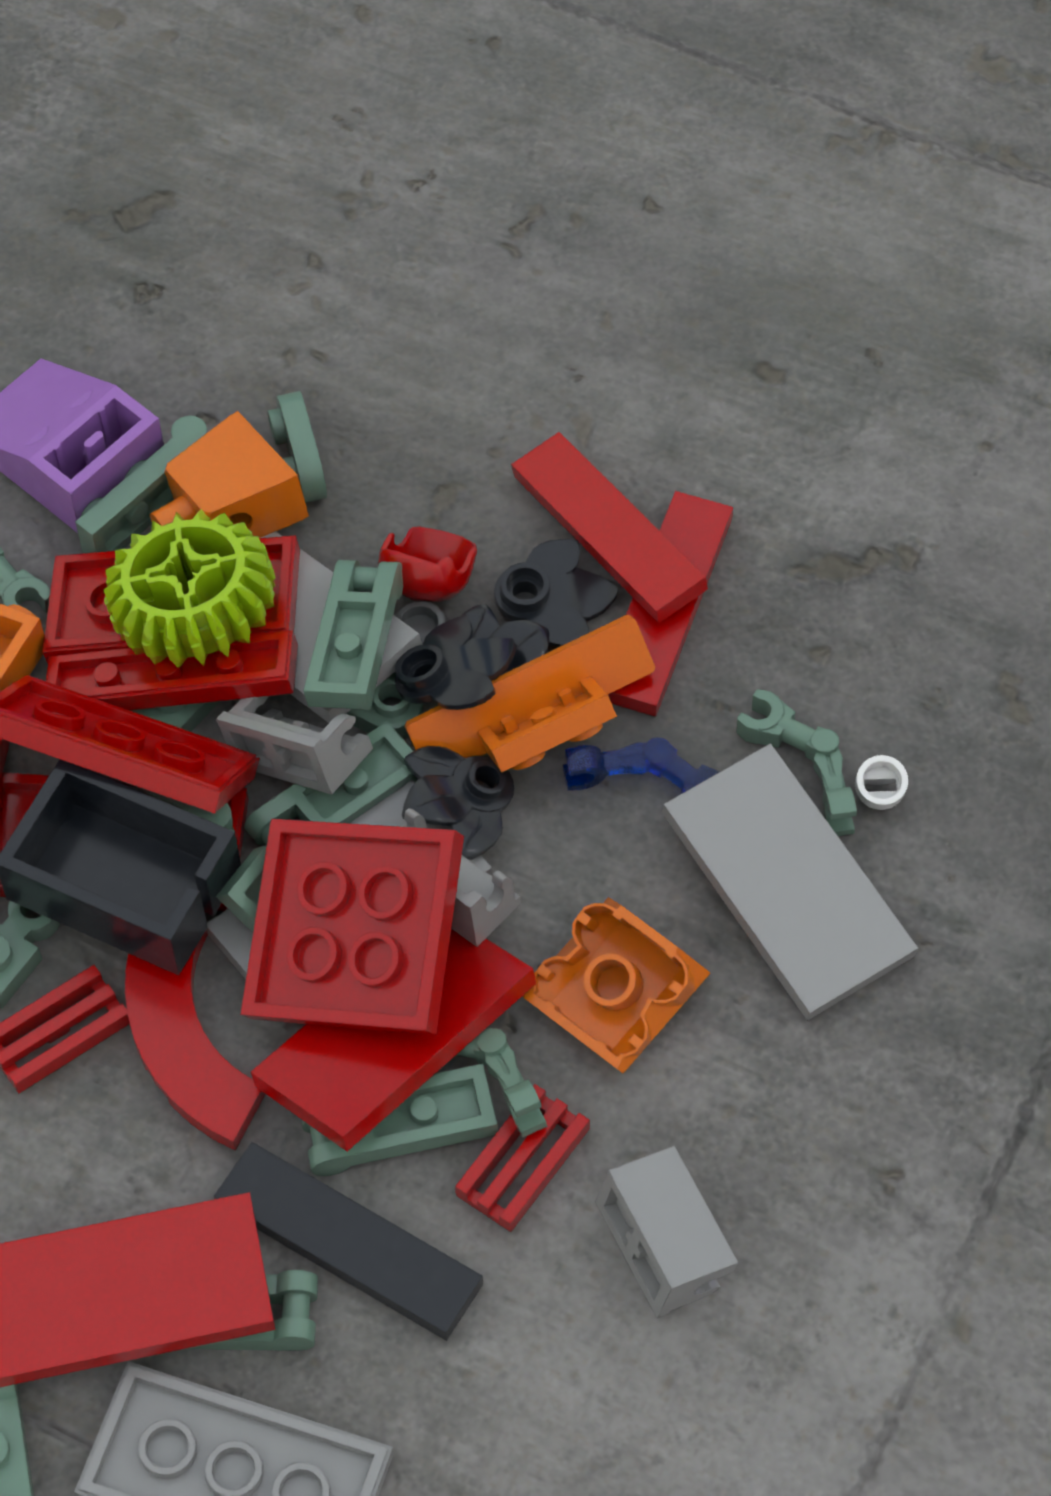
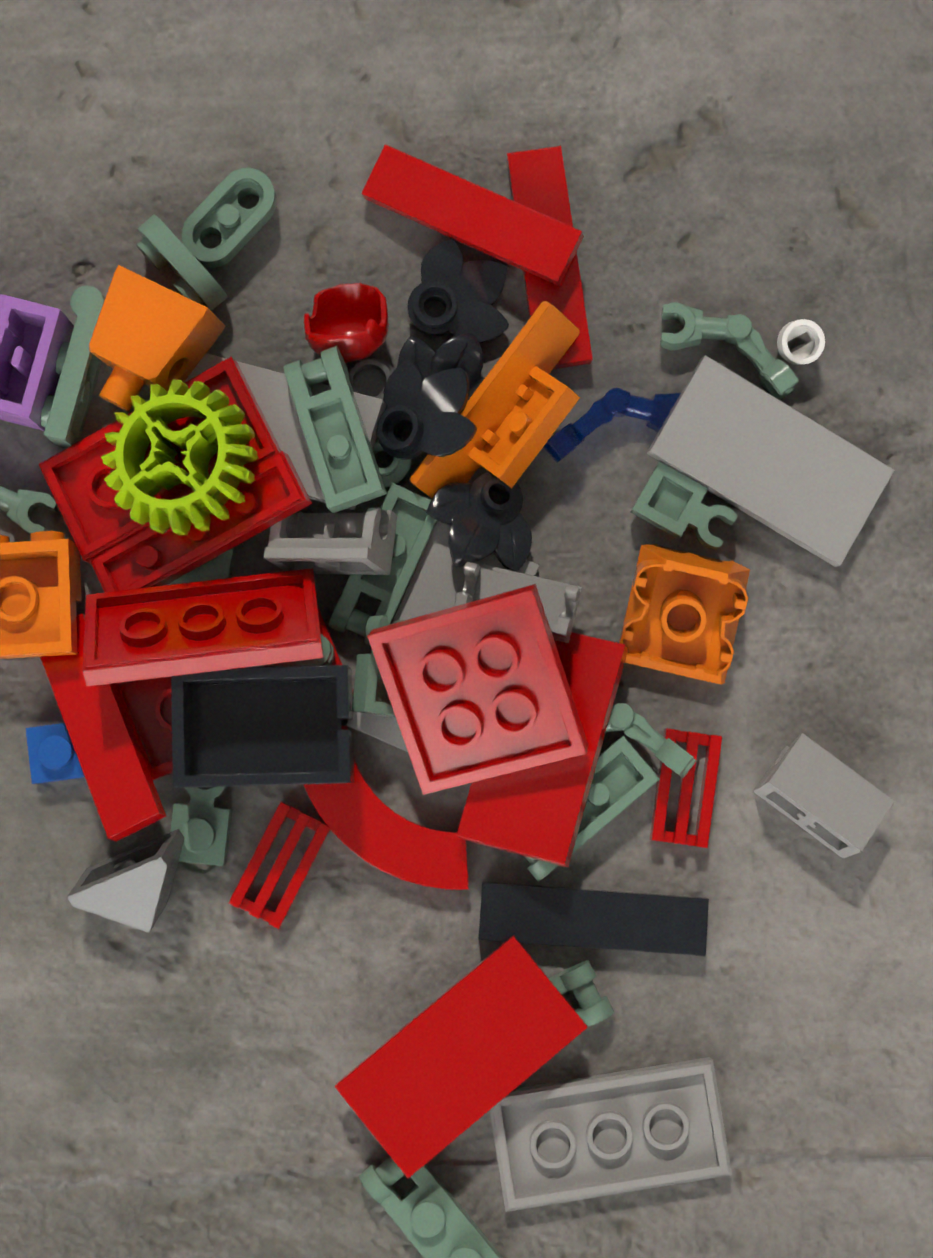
camera: 30 degrees left, 25 degrees up
(369, 431) = (224, 216): none -> sand green plate
(669, 874) = (674, 503): none -> sand green plate

